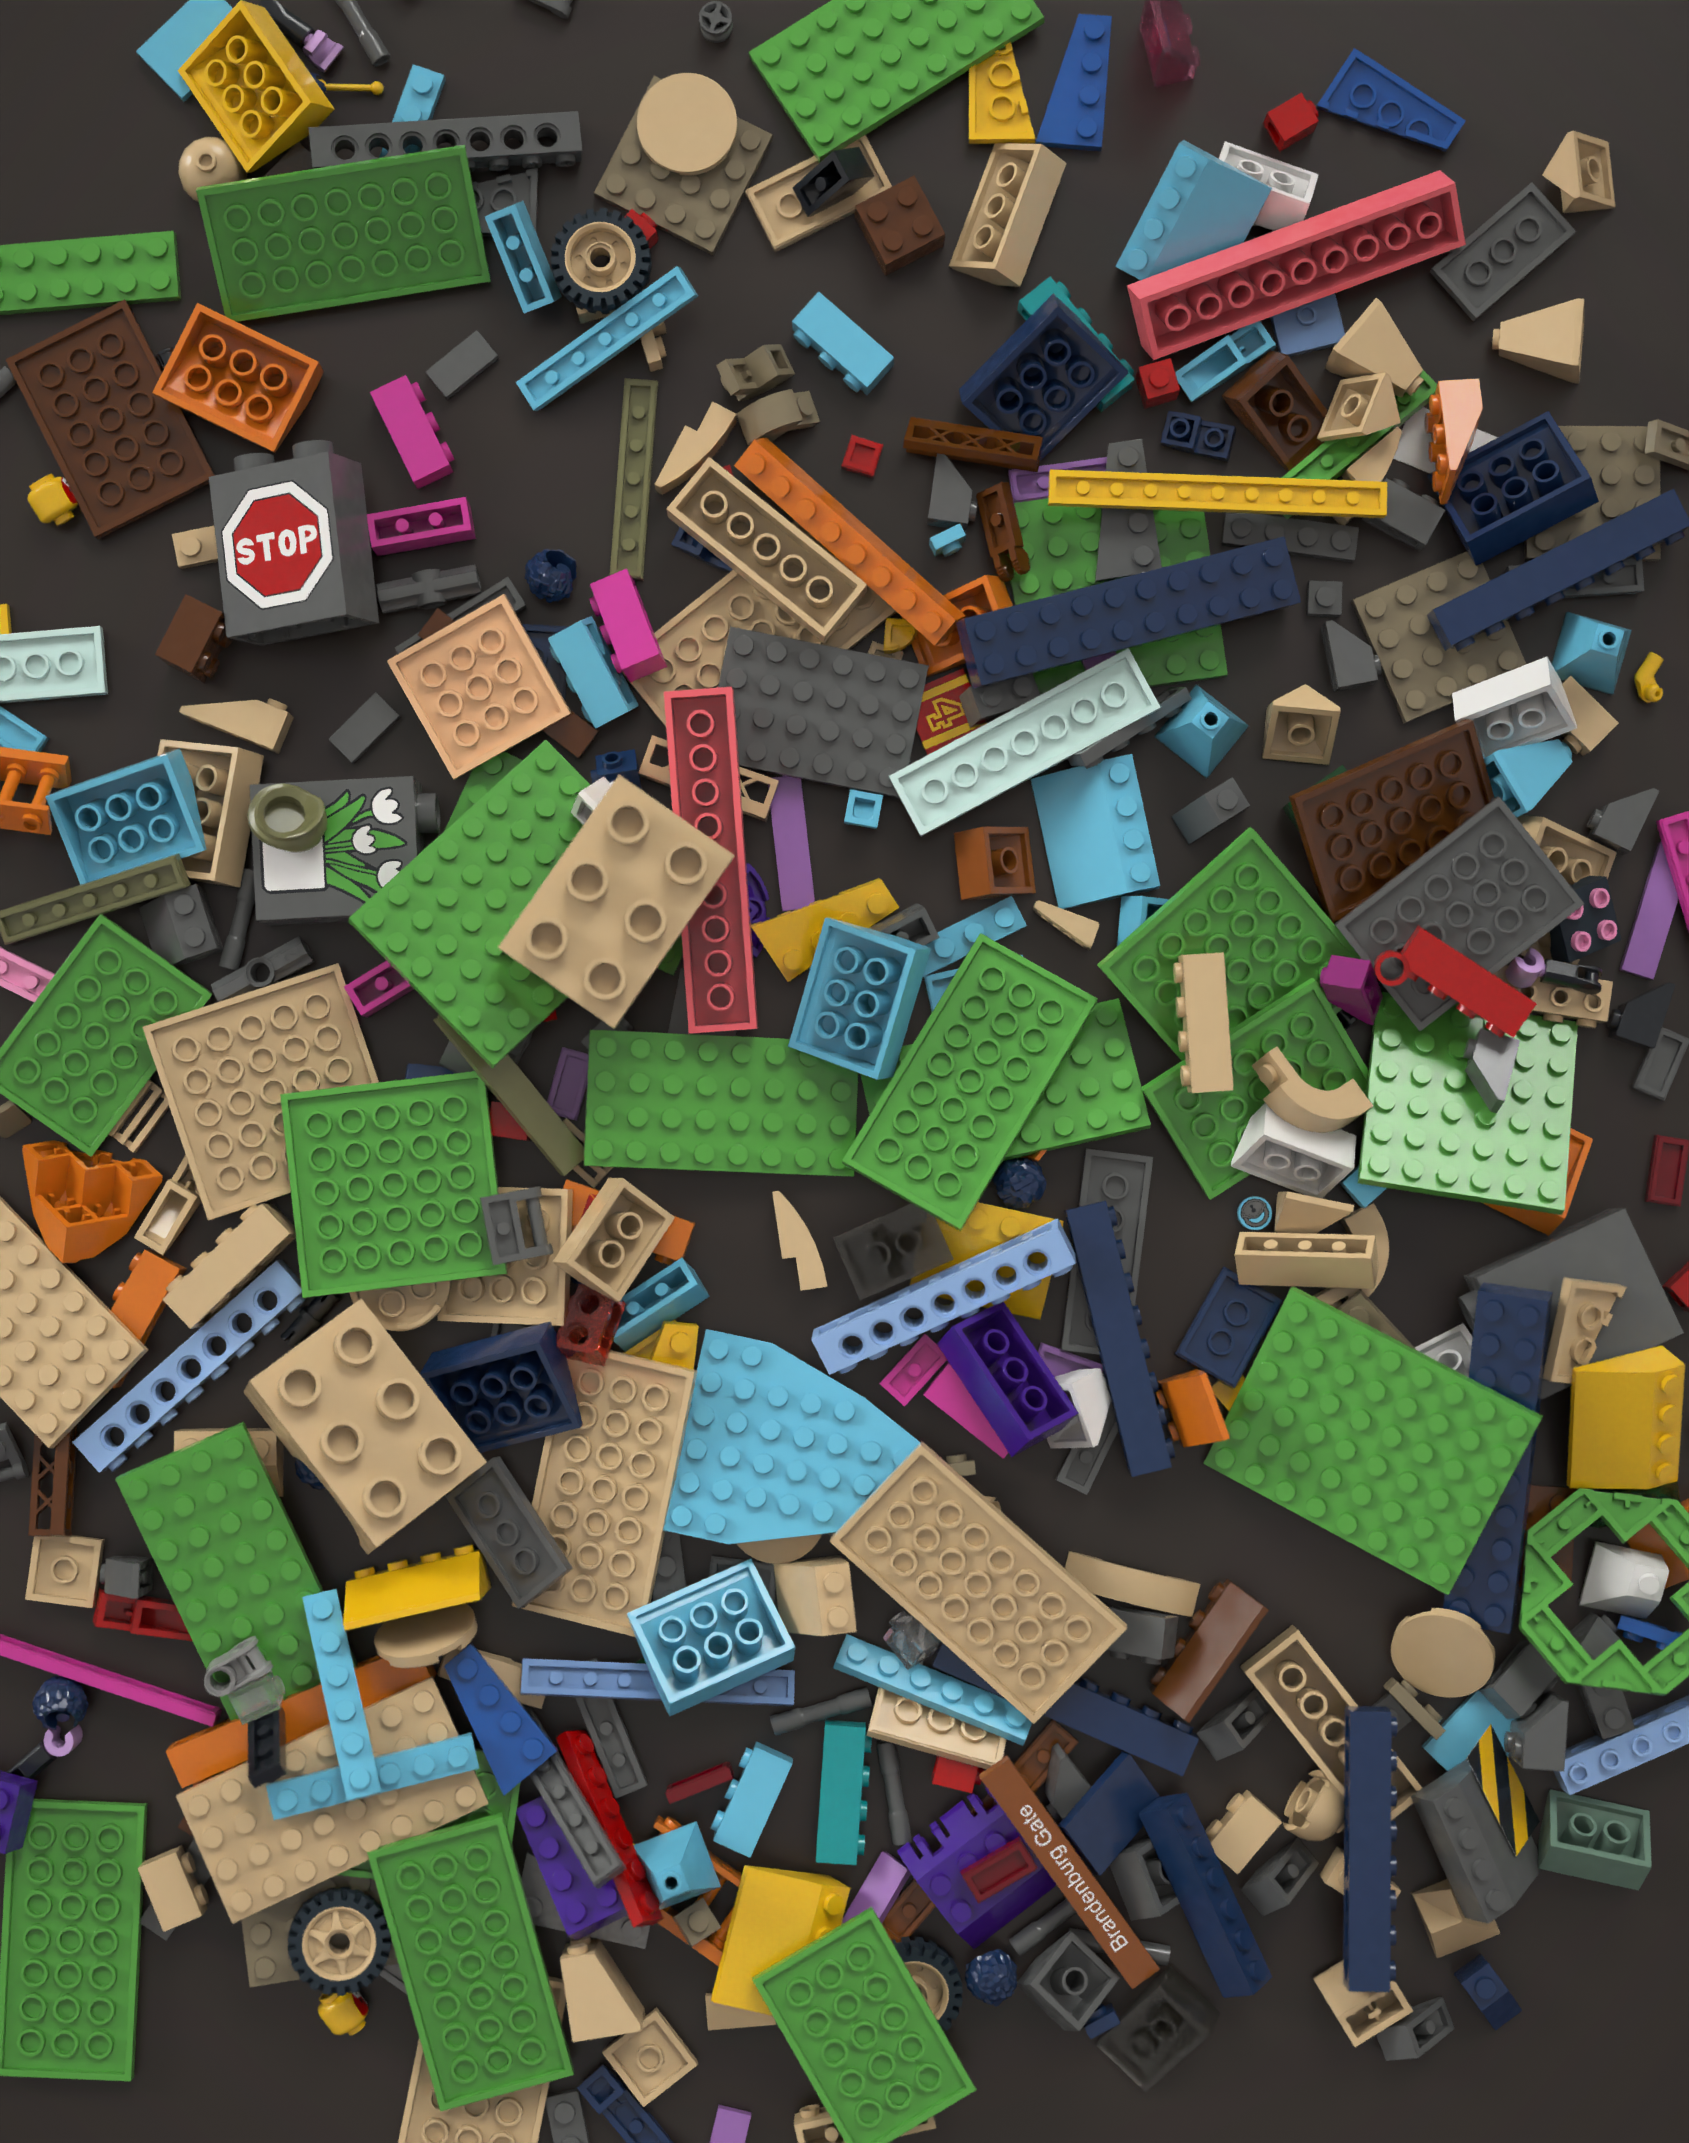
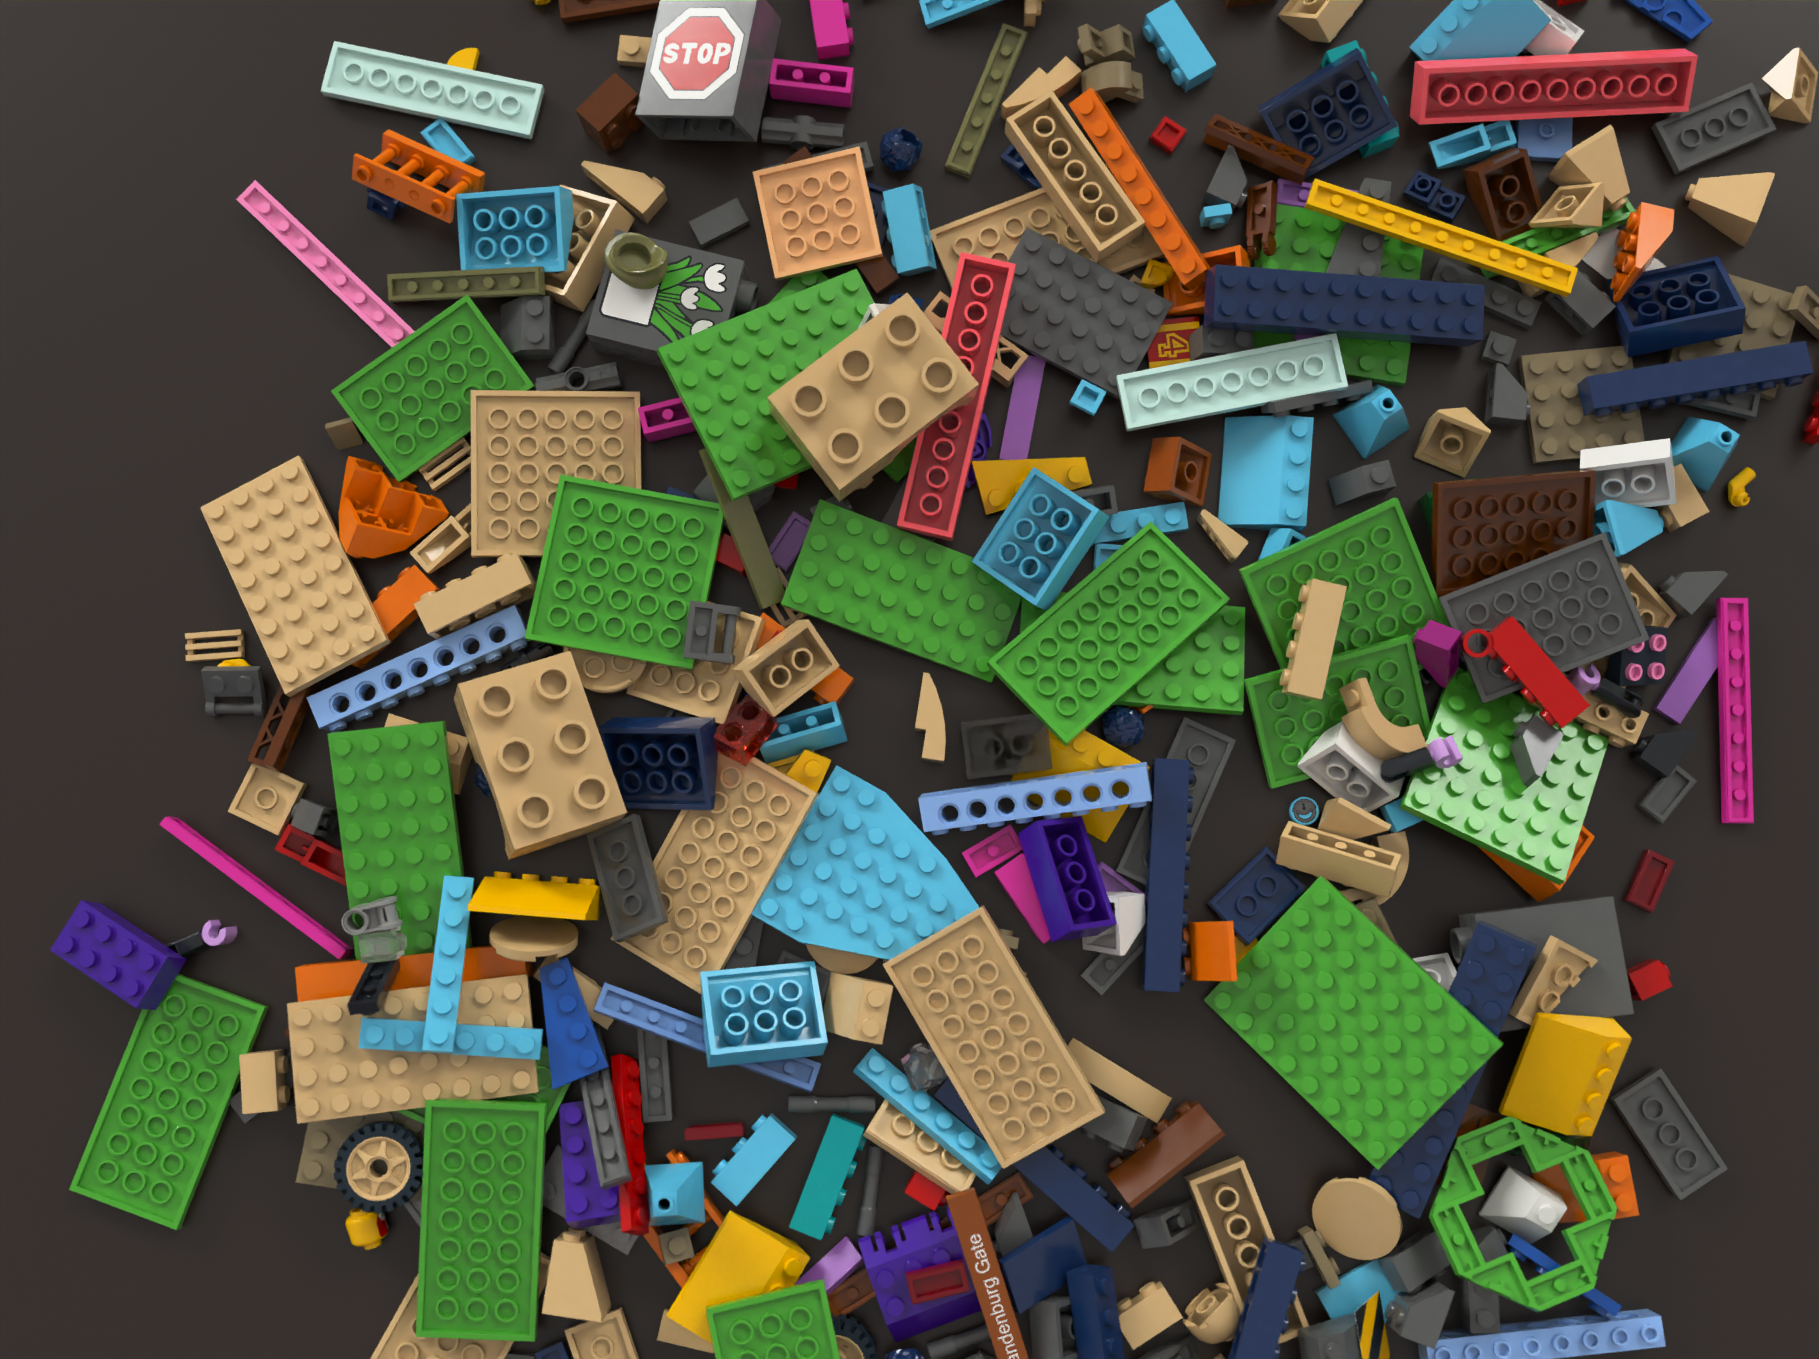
camera: 20 degrees right, 5 degrees down
(57, 1700) = (225, 899): dark blue piece -> none
(626, 626) = (946, 203): dark pink brick -> none
(1157, 383) = (1414, 146): red brick -> none
(1387, 1106) = (1442, 752): none -> piece

